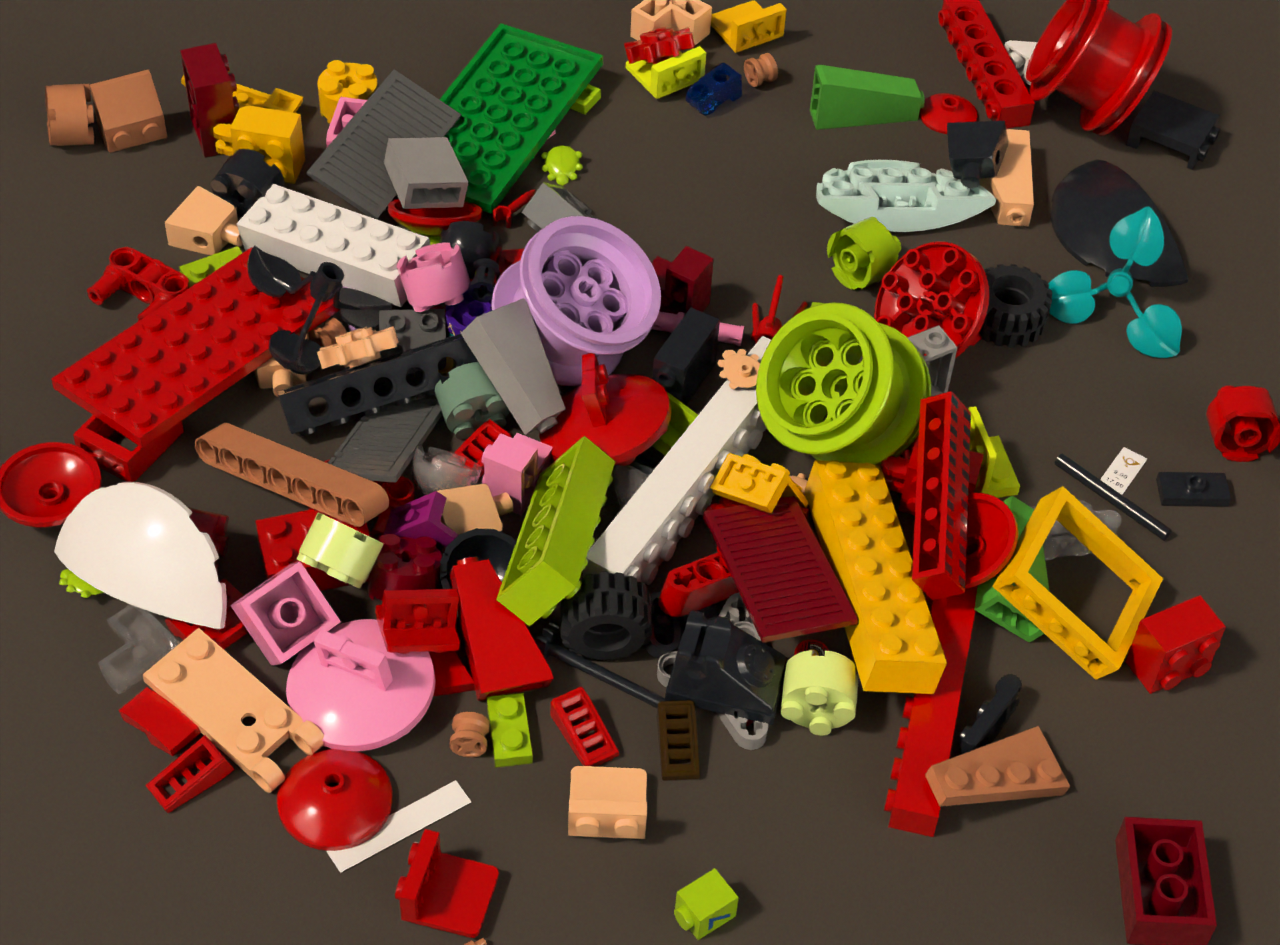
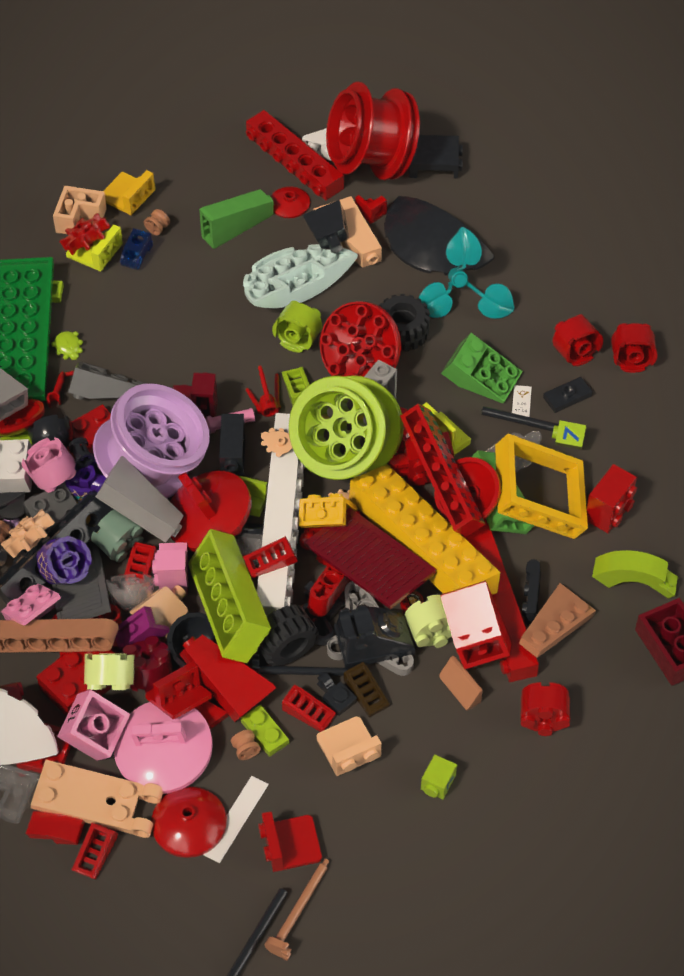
camera: 25 degrees left, 5 degrees up
(313, 436) = (31, 605): none -> bright pink bracket
(377, 395) = (64, 560): none -> dark purple brick
(634, 731) = (337, 696): none -> black plate
(650, 516) = (280, 562): none -> red slope
(815, 795) = (461, 684): none -> nougat slope
(871, 718) = (476, 625): none -> slope
(913, 881) = (545, 708): none -> red brick
(1053, 160) = (372, 209): none -> red panel
(1086, 407) = (481, 370): none -> bright green slope
(1162, 752) = (635, 567): none -> lime arch
(1164, 538) = (569, 434): none -> lime brick

